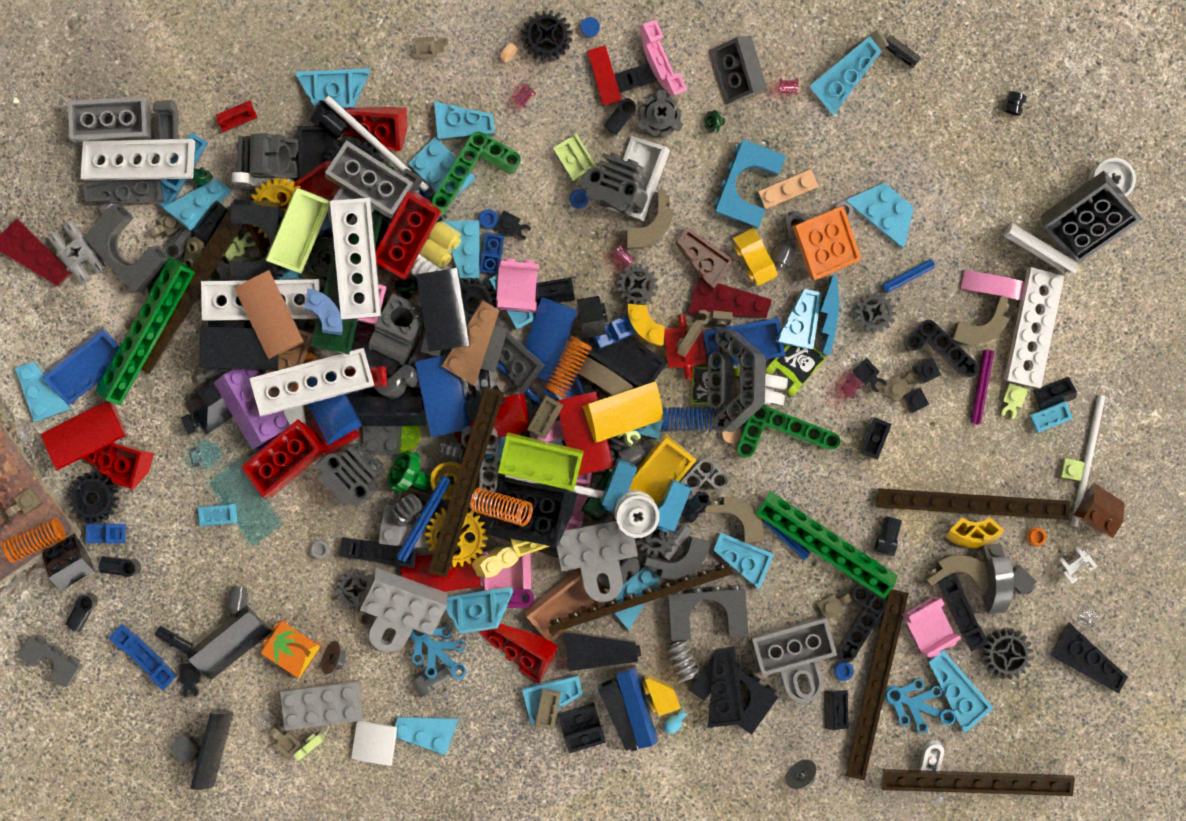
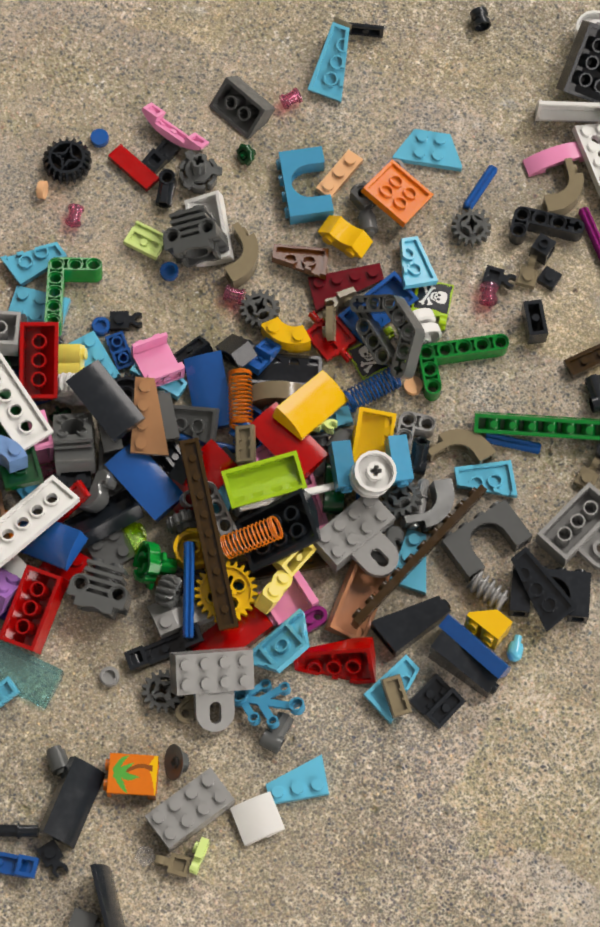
camera: 30 degrees left, 20 degrees down
(830, 308) = (433, 245): dark azure slope -> none

